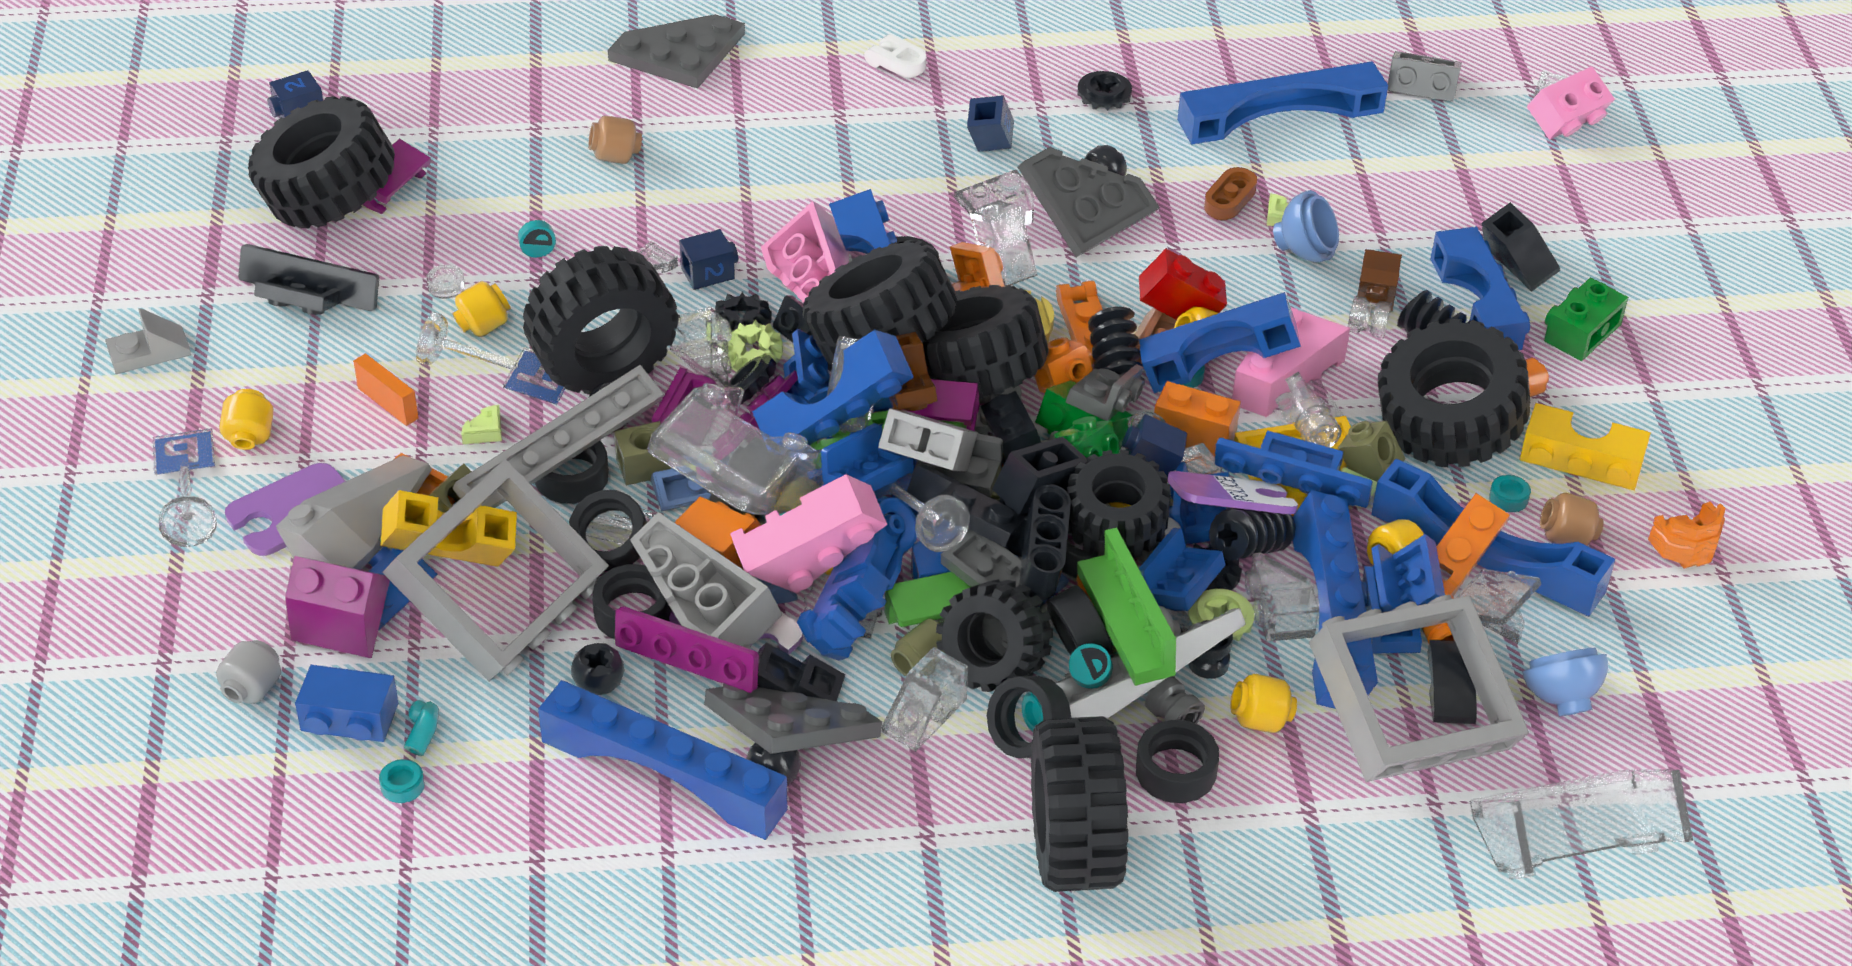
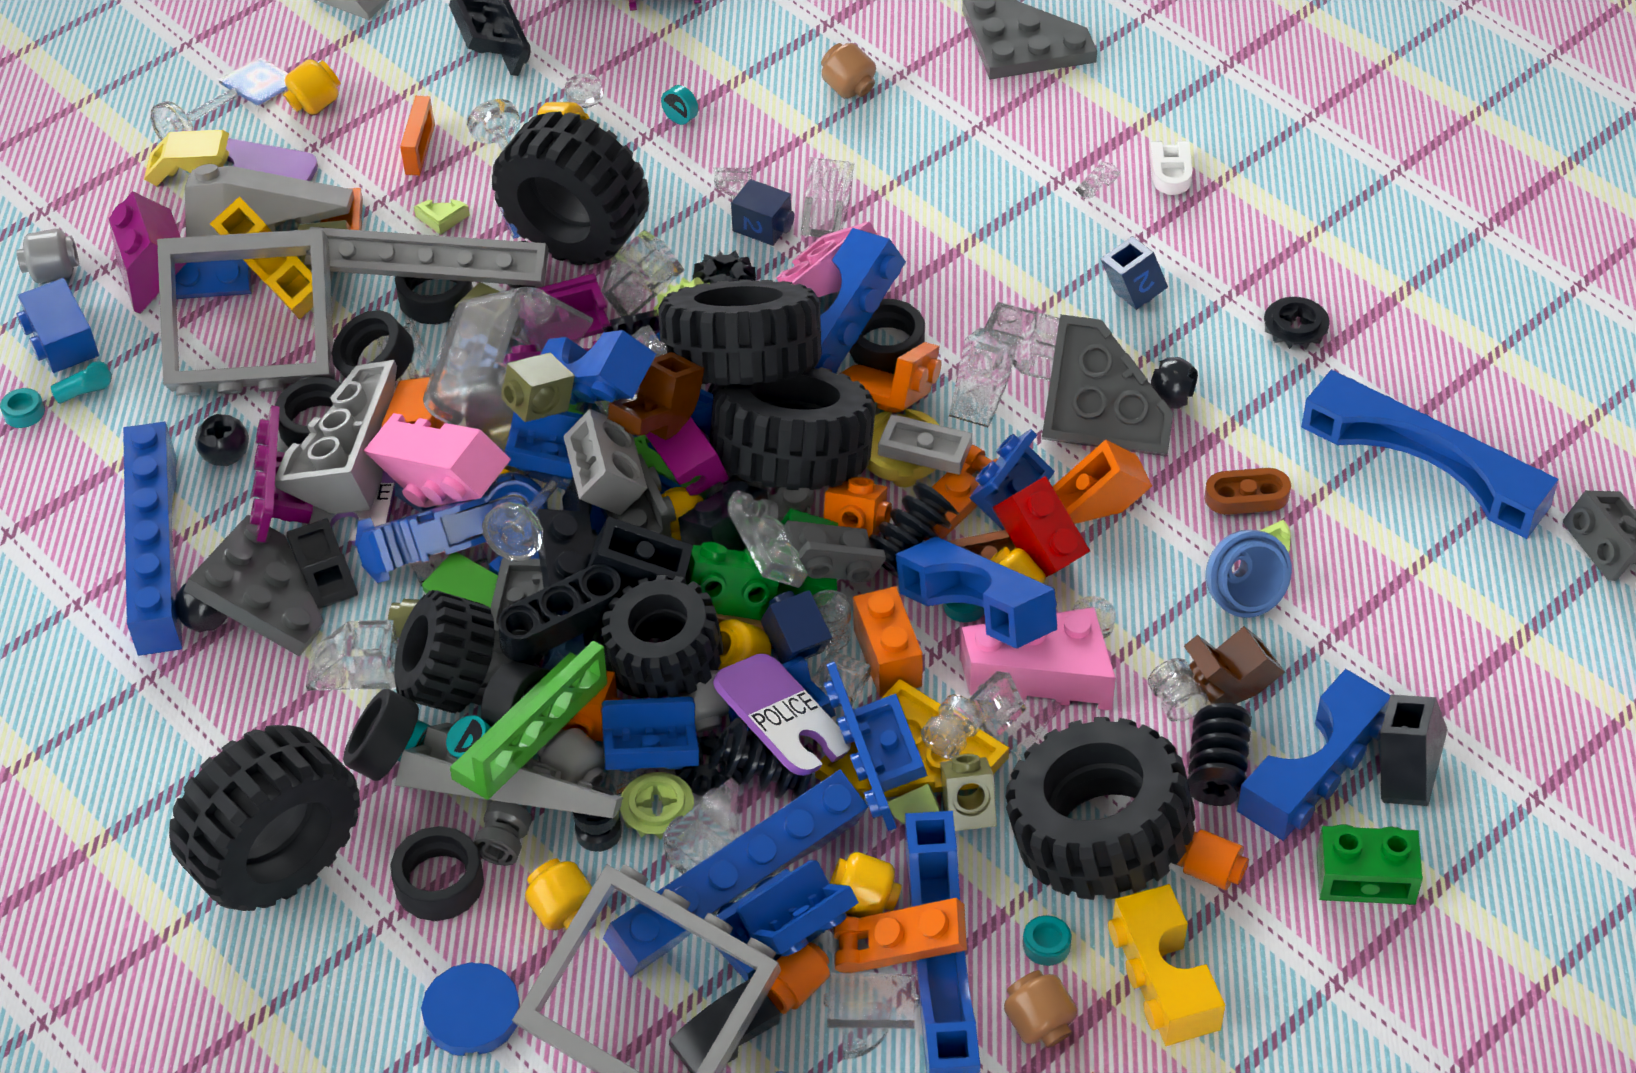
camera: 55 degrees right, 5 degrees up
(242, 518) = (186, 151): none -> light yellow slope
(735, 215) = (826, 196): none -> clear slope
(832, 424) = (537, 387): none -> olive brick
(871, 93) = (1104, 173): none -> clear tile
(1057, 295) = (925, 444): none -> light grey plate
(1076, 405) = (766, 539): none -> clear plate
(1112, 279) = (1012, 472): none -> blue bracket
(1157, 234) = (1102, 483): none -> orange slope
(1313, 808) = (470, 1009): none -> blue tile

